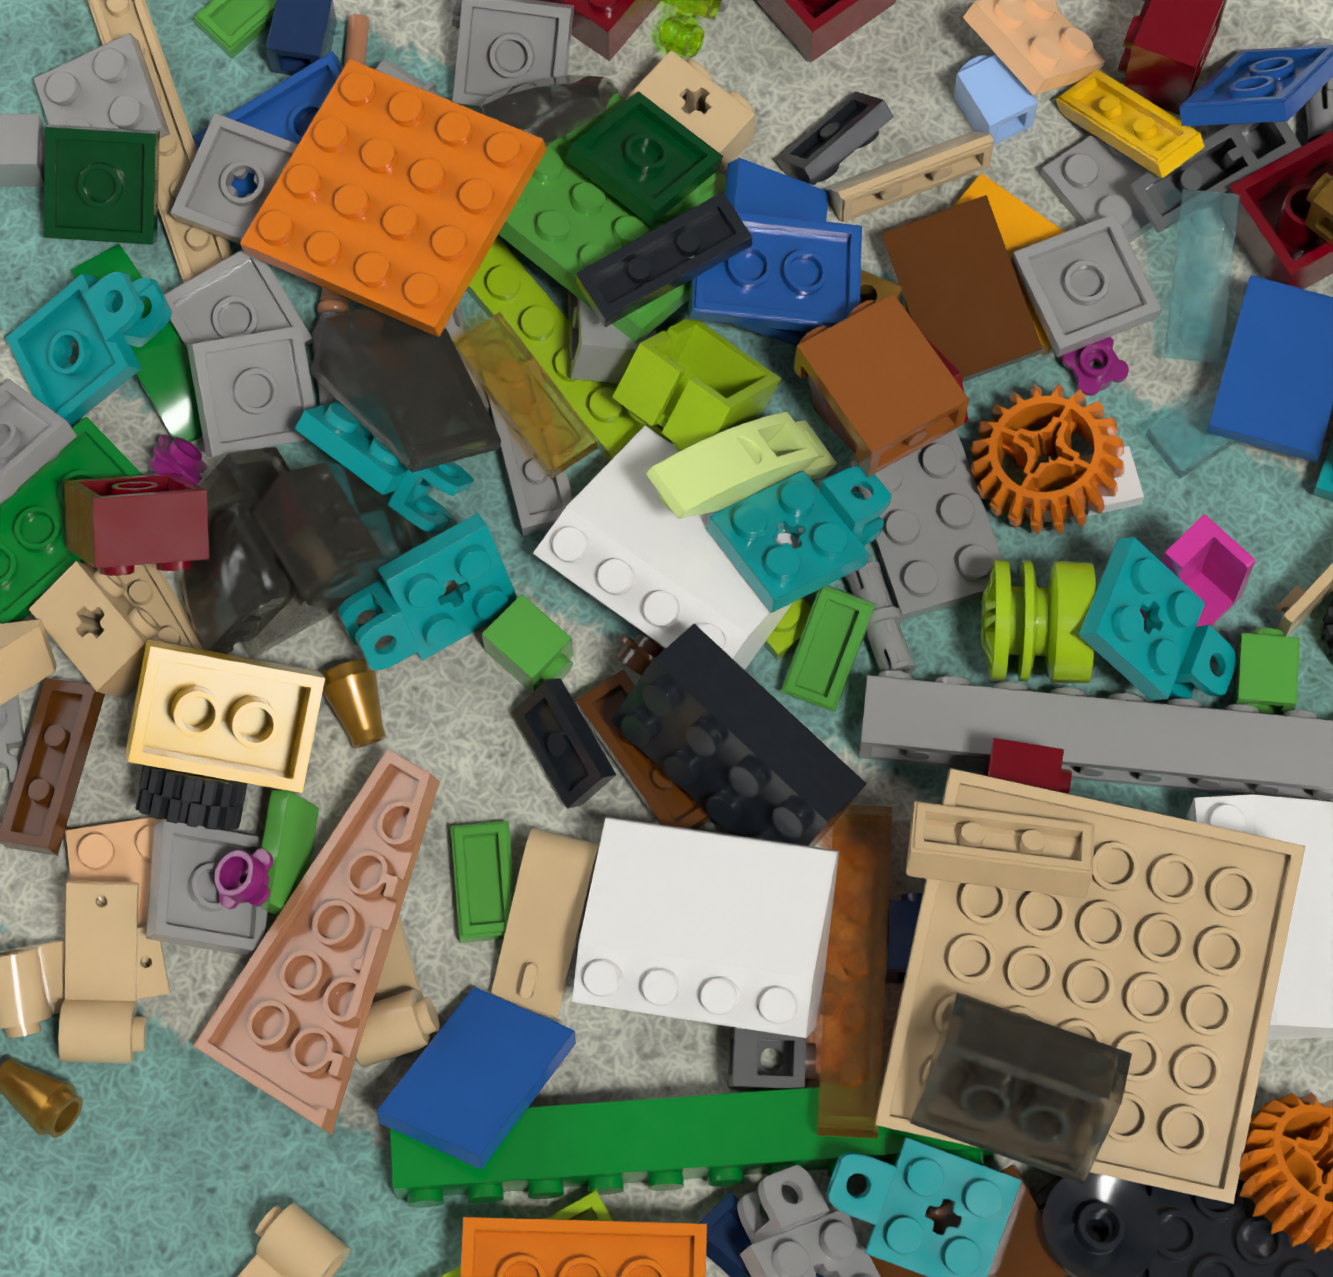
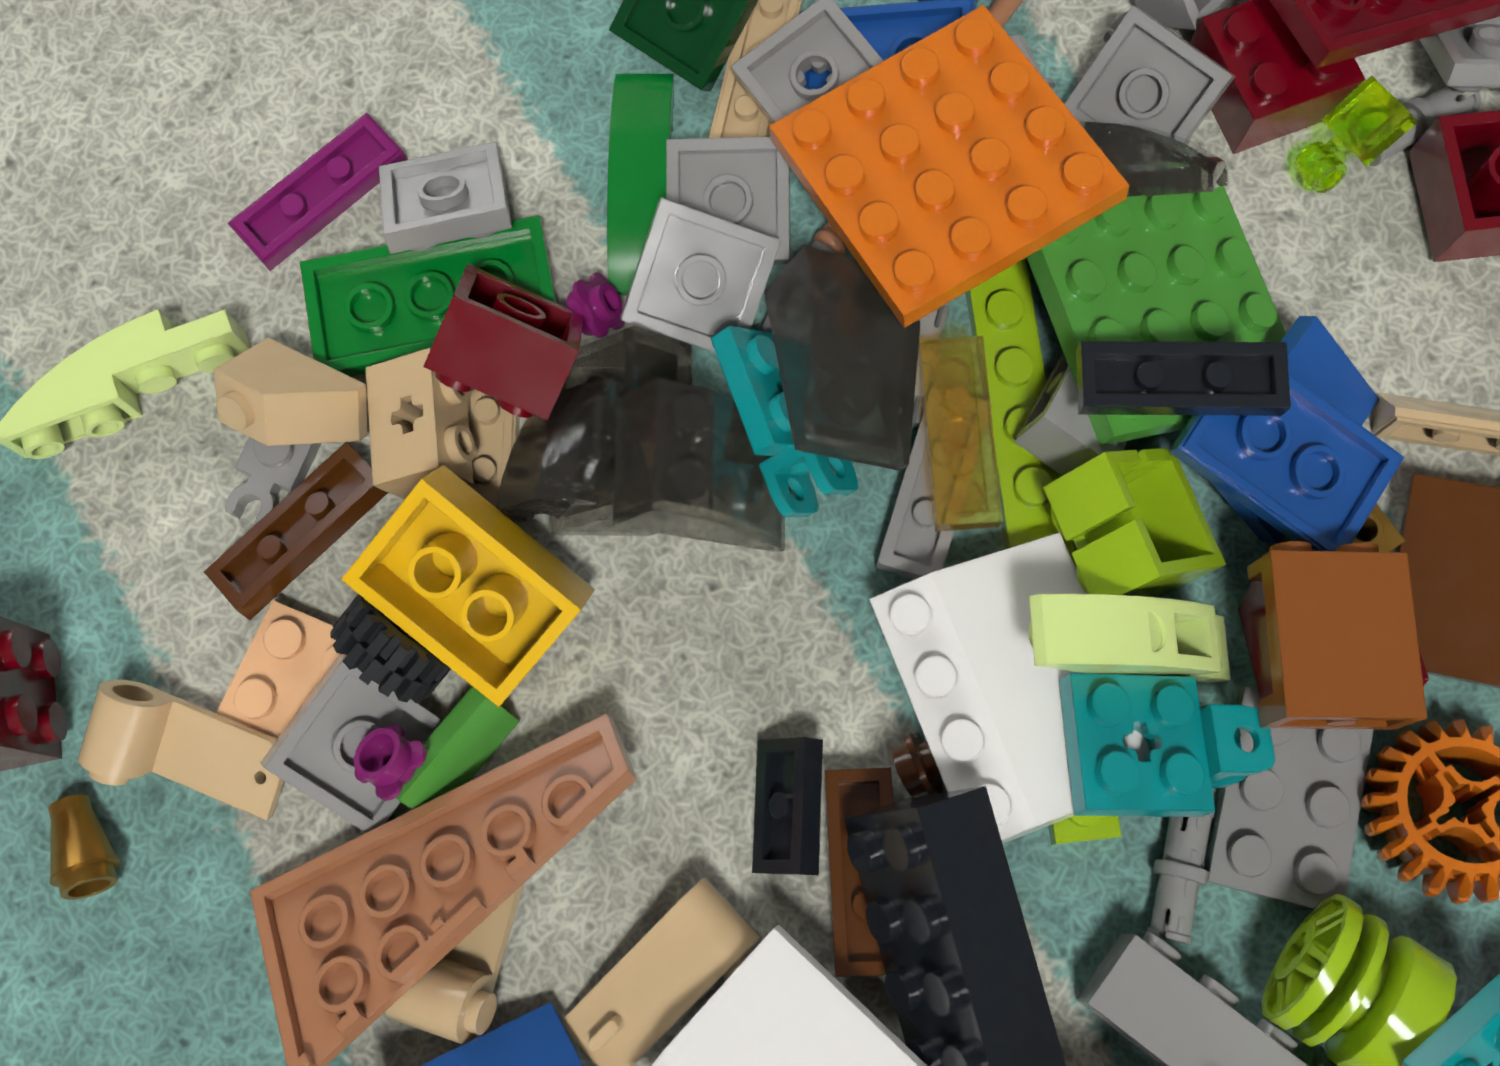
camera: 35 degrees right, 5 degrees up
(101, 975) = (189, 800): tan door -> none
(104, 323) = (596, 130): teal plate -> none
(355, 700) = (615, 639): pearl gold cone -> none
(413, 602) = (725, 577): teal plate -> none
(483, 879) = (627, 894): bright green tile -> none
(529, 644) = (814, 686): bright green brick -> none
(644, 158) = (1218, 263): dark green plate -> none
(688, 87) = (1293, 245): tan brick -> none
(828, 647) = (1112, 872): bright green tile -> none
(834, 138) = (1420, 350): black plate -> none

